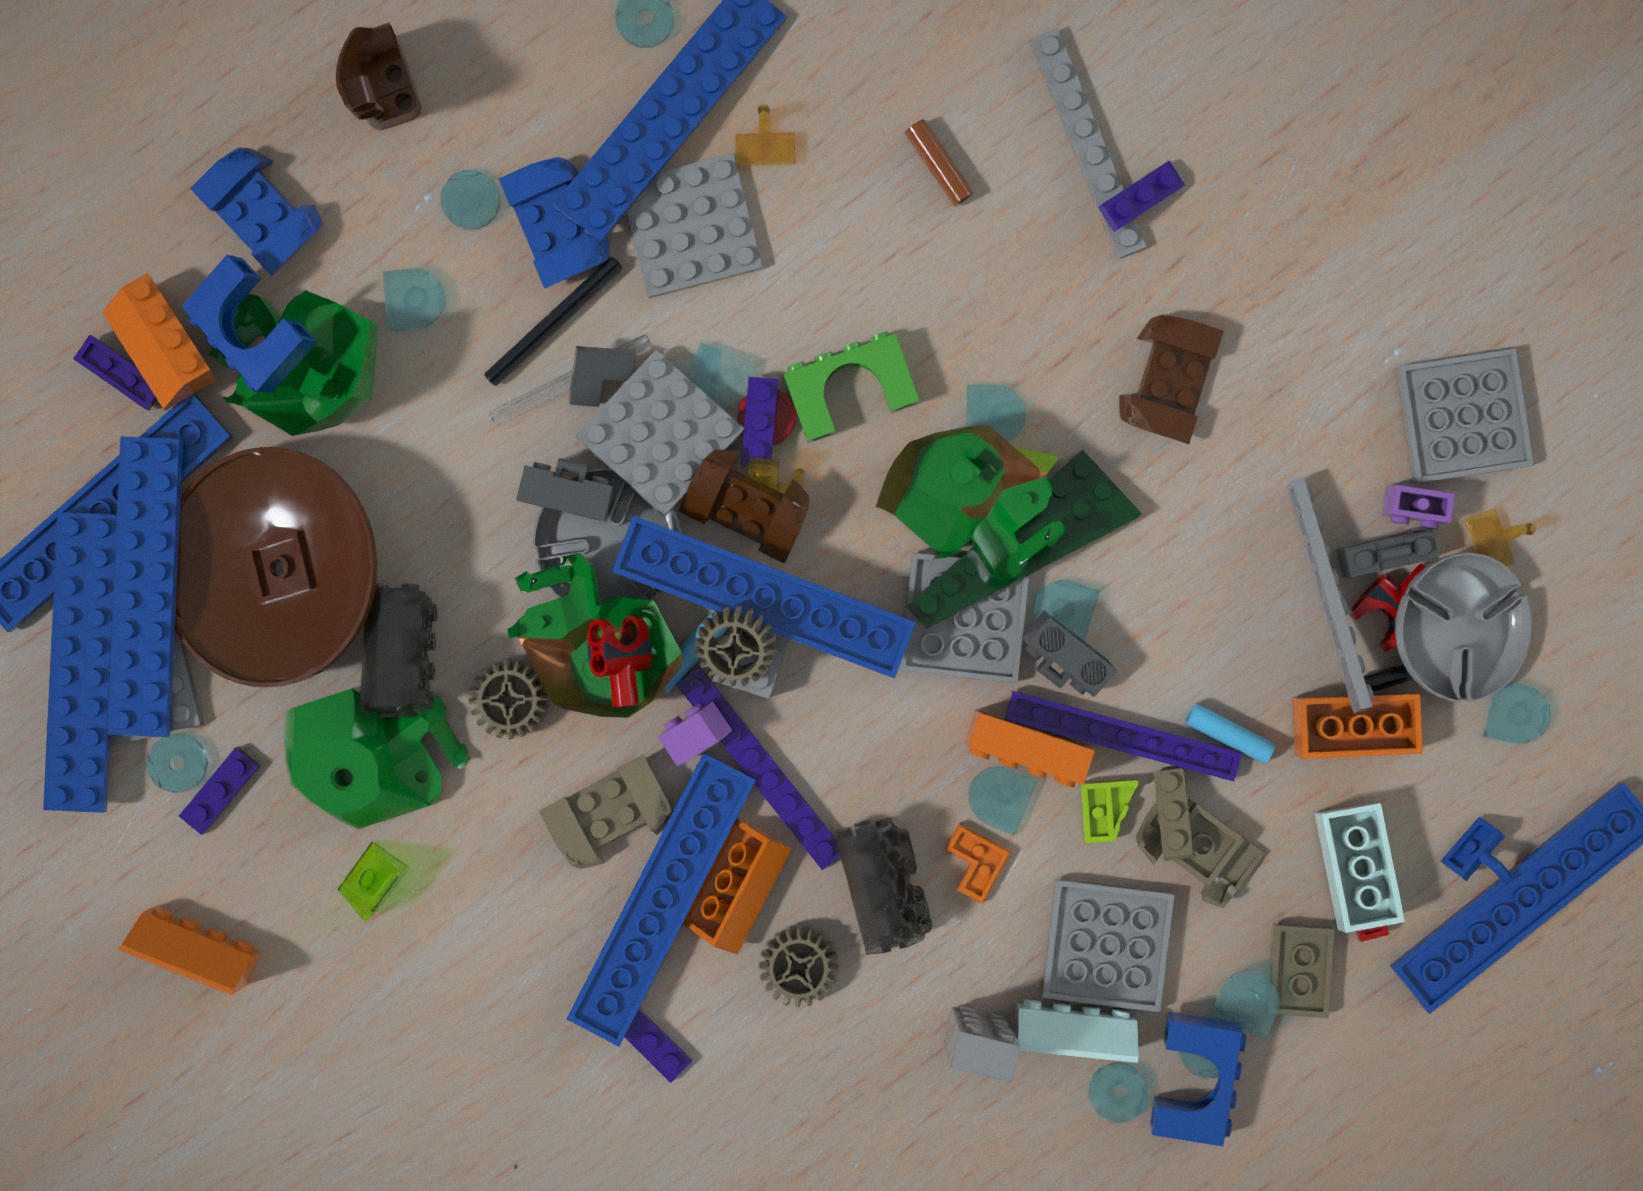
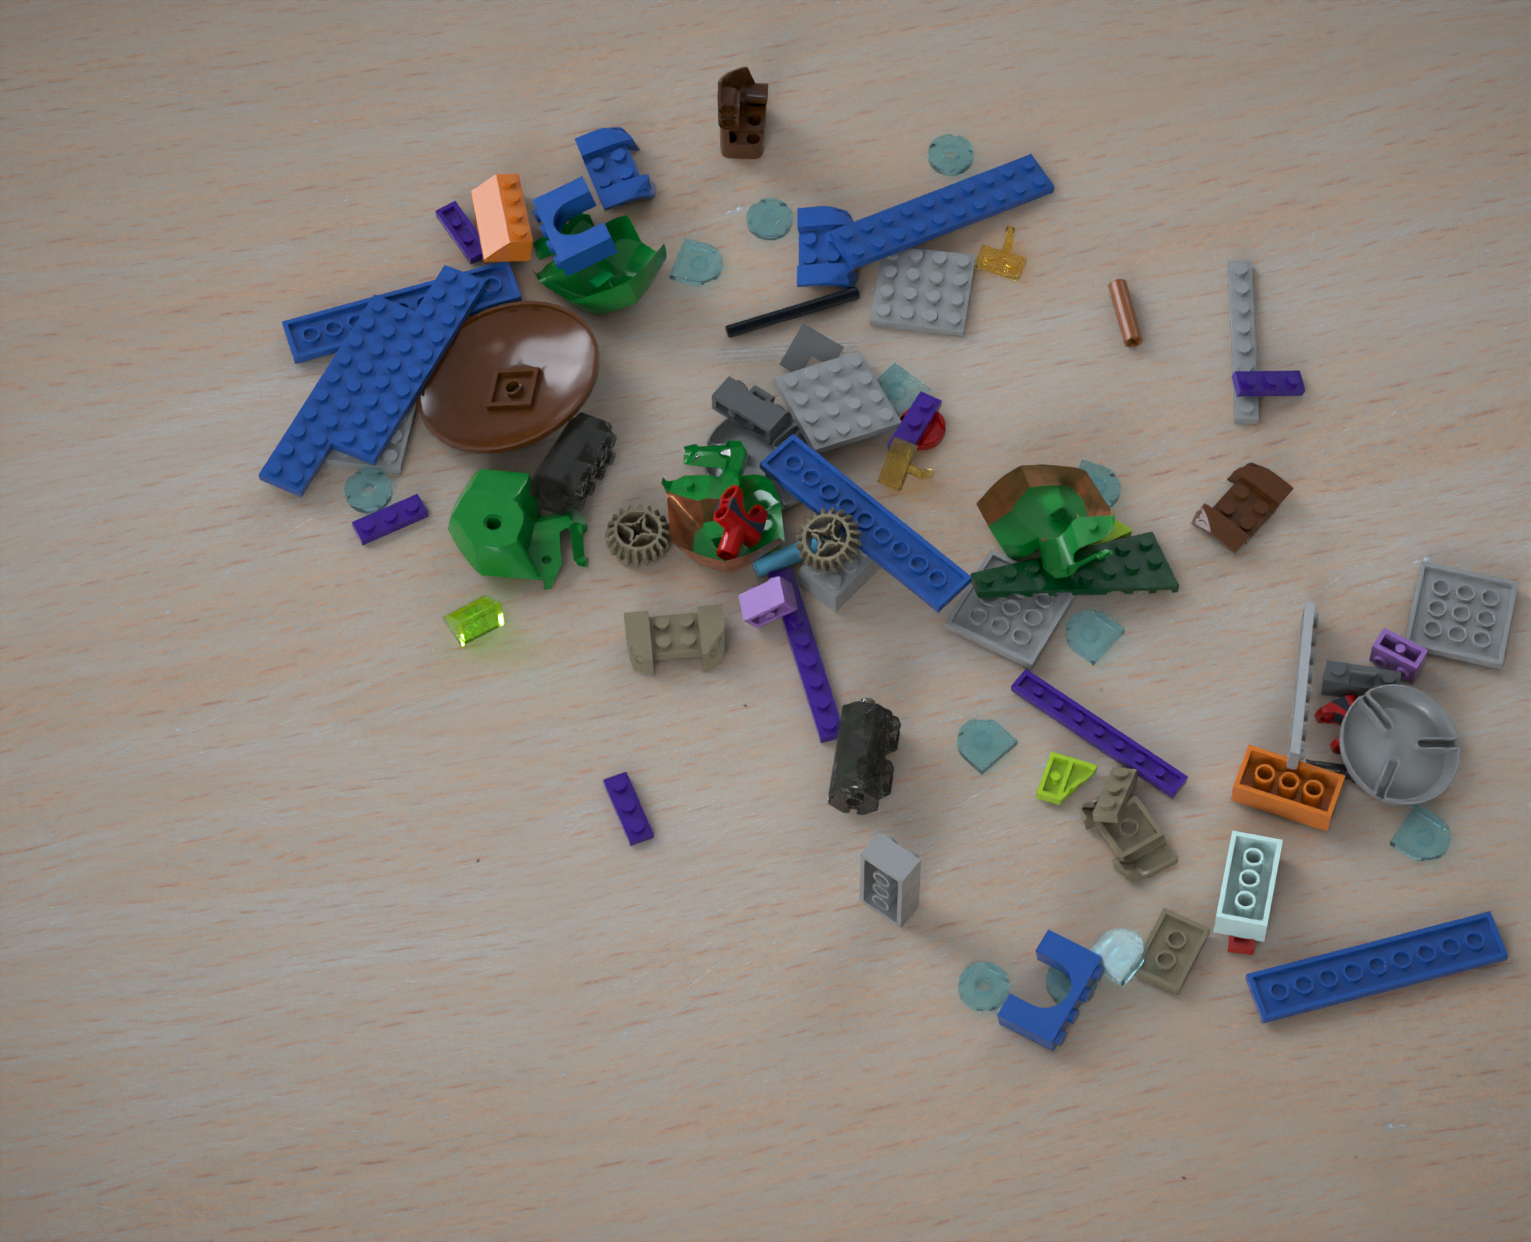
camera: 20 degrees right, 30 degrees down
(191, 950) = (315, 609): orange slope -> none
(661, 899) = (686, 708): blue plate -> none
(737, 886) = (749, 722): orange slope -> none
(746, 504) = (876, 467): reddish brown piece -> none
(787, 975) = (753, 803): dark tan gear -> none
(880, 357) = (1020, 414): bright green arch -> none
(985, 861) = (950, 782): orange tile -> none
(1028, 747) = (1020, 705): orange brick -> none
(1060, 645) = (1086, 662): dark grey piece -> none
(1076, 1031) = (967, 921): light aqua slope -> none
(1107, 945) = (1022, 874): light grey plate -> none
(1230, 733) = (1185, 762): medium azure piece -> none
(1474, 850) = (1353, 912): blue plate -> none
(1491, 539) = (1450, 699): clear yellow plate -> none

